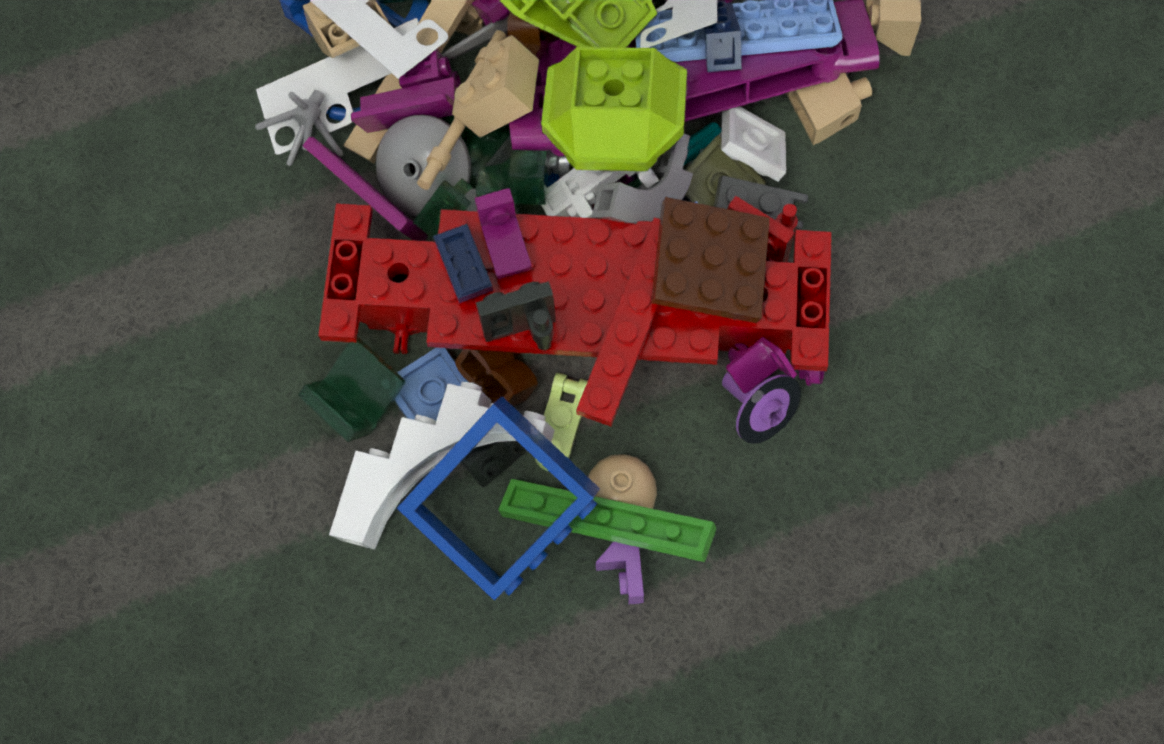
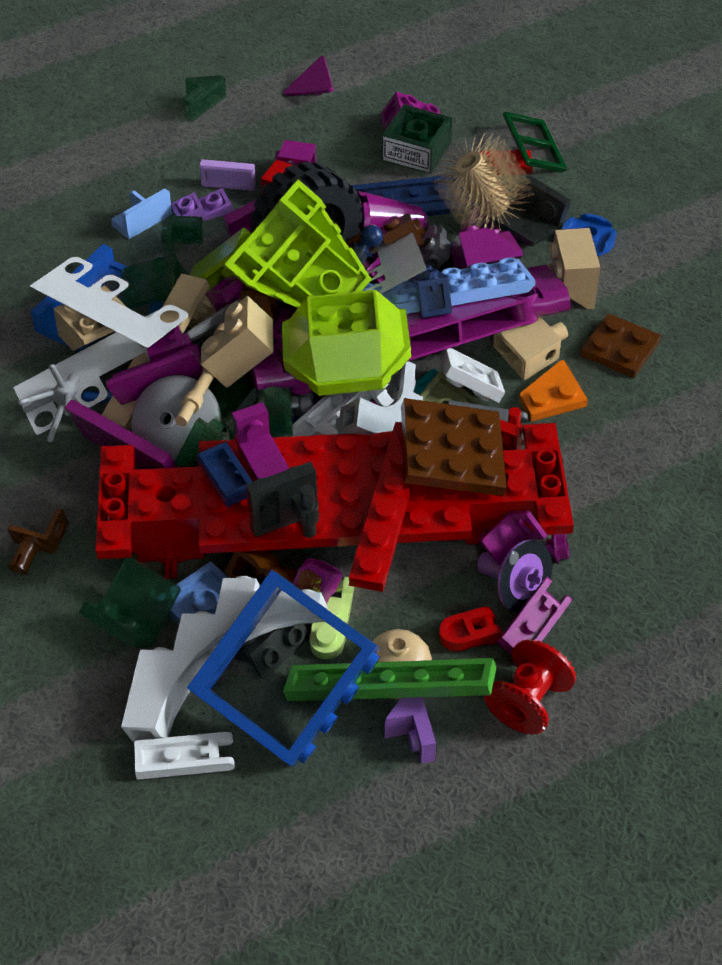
camera: 10 degrees left, 20 degrees down
(257, 298) = (33, 542): none -> reddish brown bracket
(387, 567) = (182, 755): none -> white hinge
(546, 391) = (319, 577): none -> magenta rock
(689, 461) = (459, 634): none -> red plate
(752, 541) = (537, 670): none -> red hose
(769, 459) = (534, 617): none -> magenta hinge
(842, 168) = (553, 394): none -> orange wing
(930, 112) = (621, 345): none -> reddish brown plate

